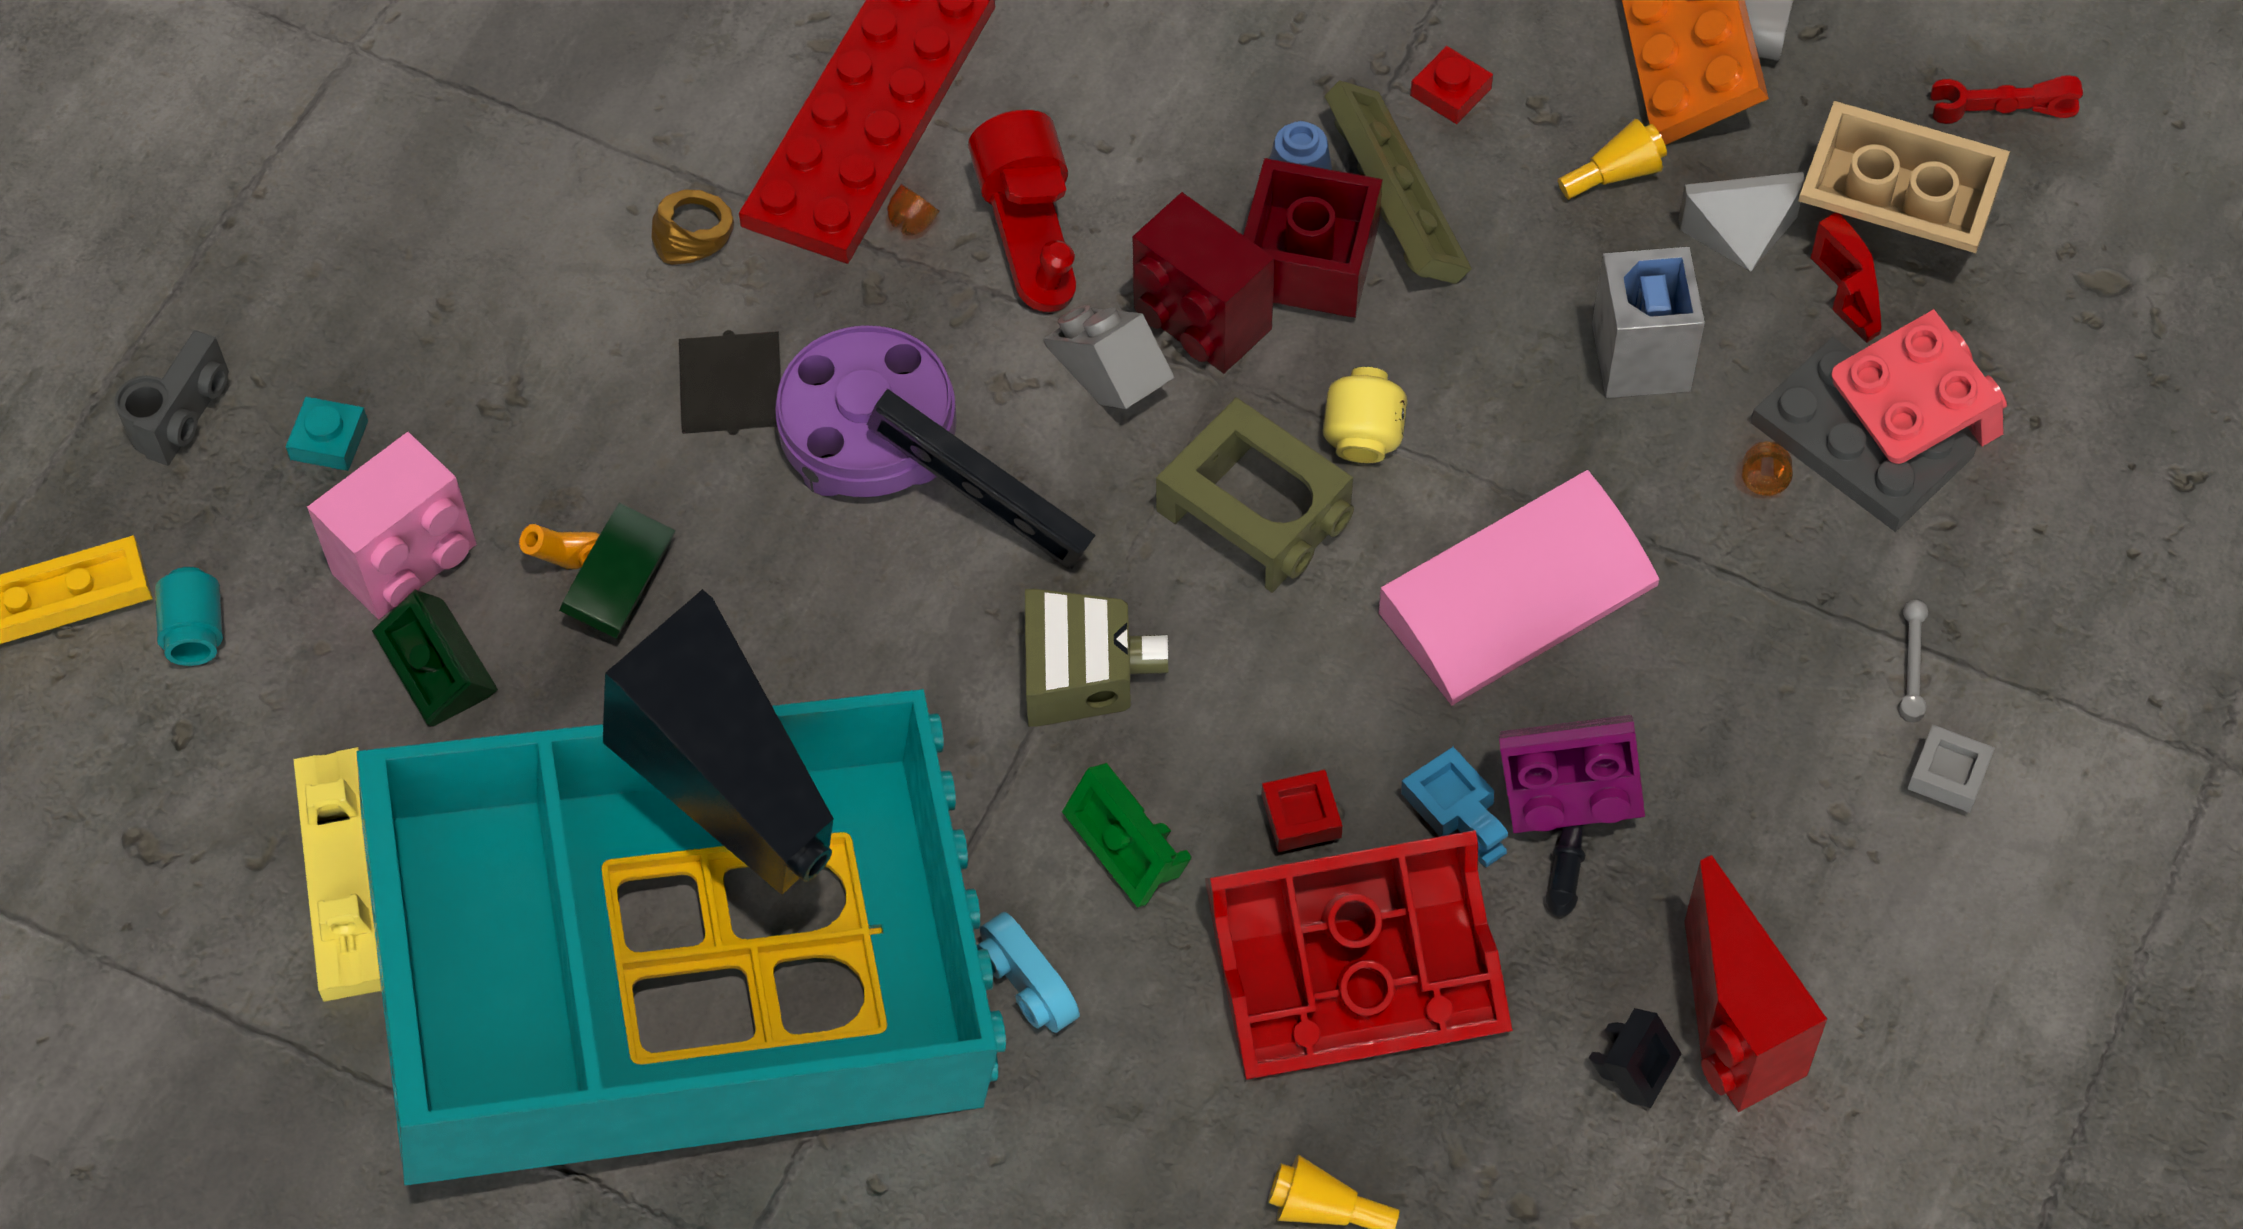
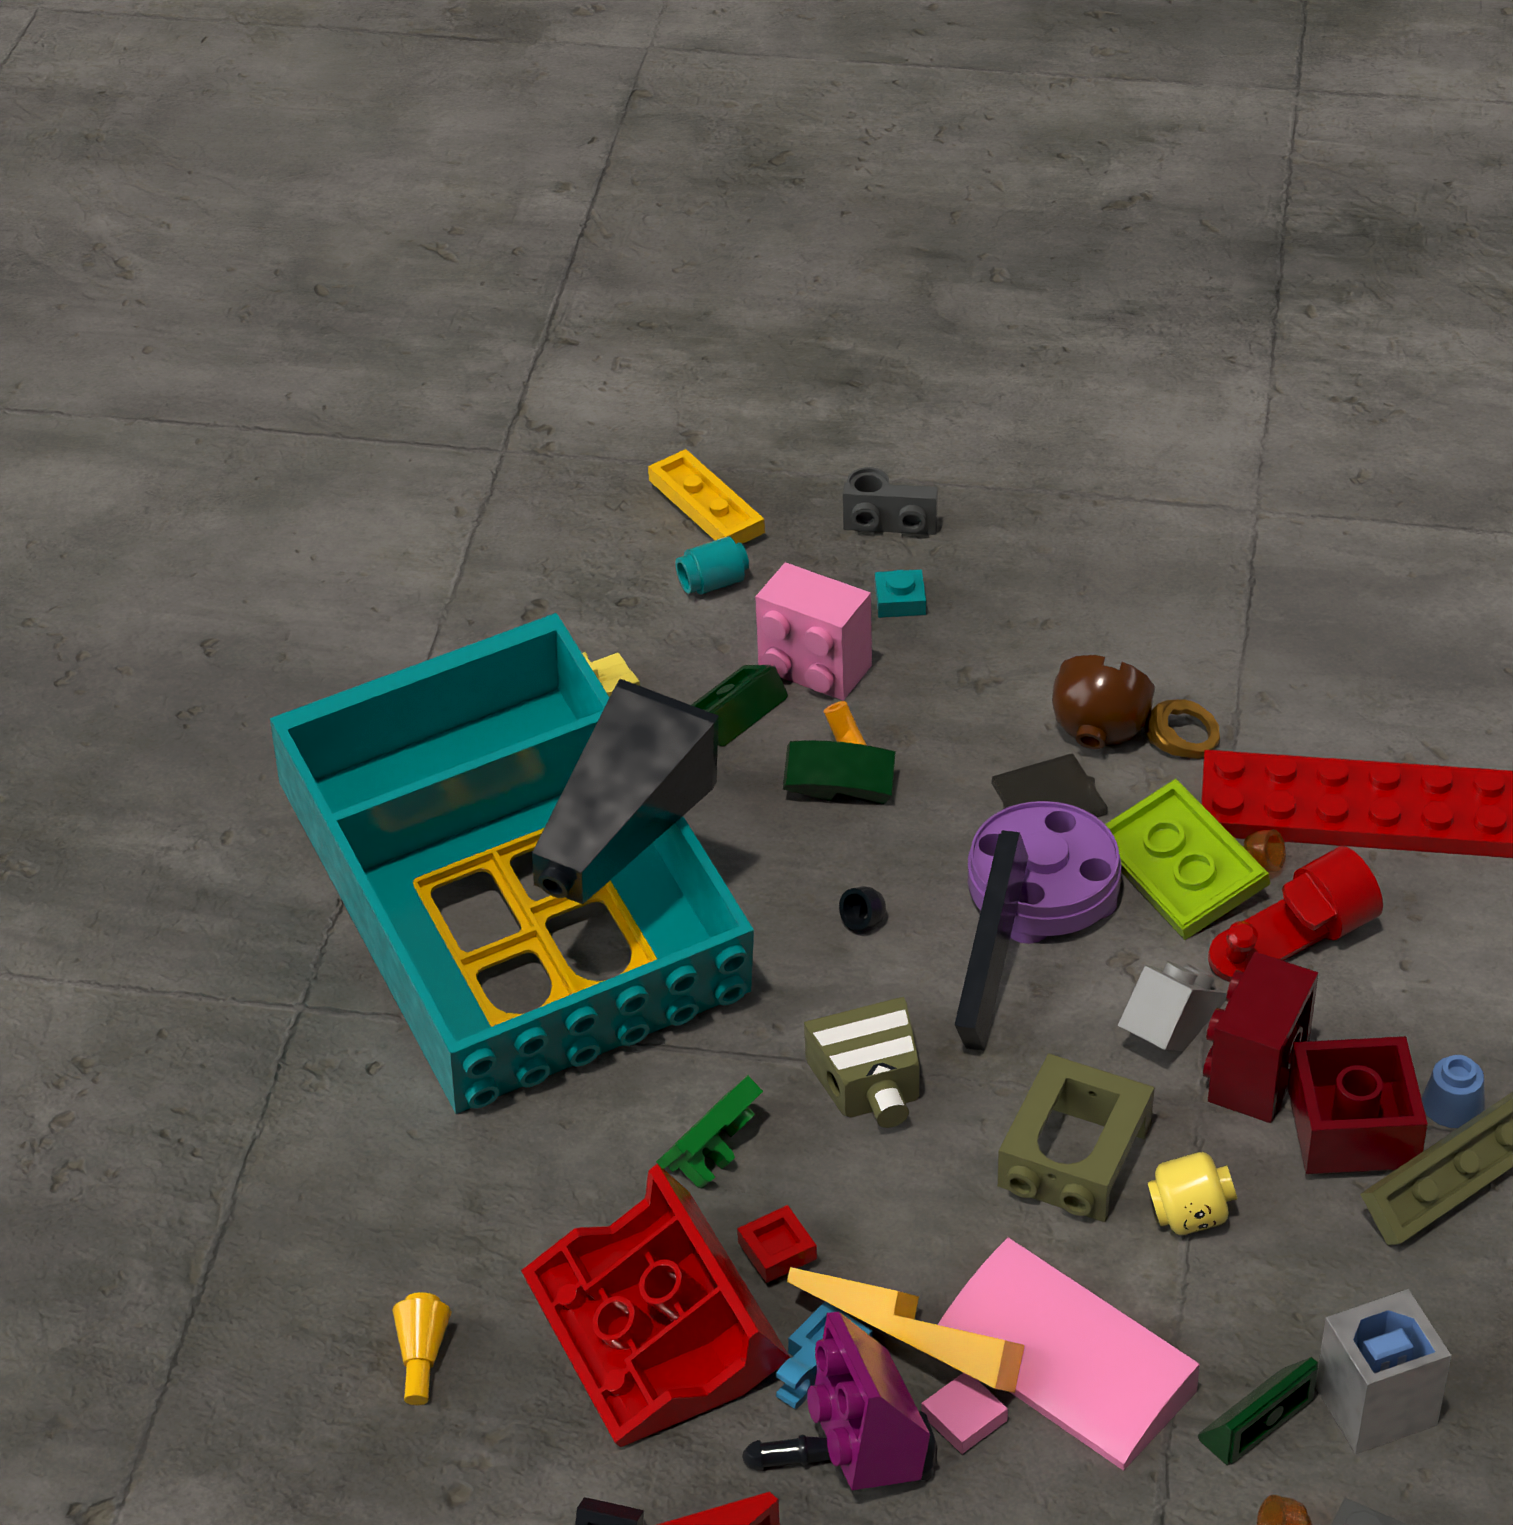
camera: 75 degrees right, 15 degrees down
(642, 281) = (1101, 701): none -> reddish brown cylinder
(855, 599) = (859, 902): none -> black hinge
(897, 276) = (1184, 859): none -> lime tile
(1041, 990) = (566, 1099): medium azure plate -> none
(1434, 723) = (893, 1312): none -> yellow slope
(1561, 694) = (964, 1412): none -> bright pink tile
(1632, 444) = (1261, 1411): none -> dark green slope

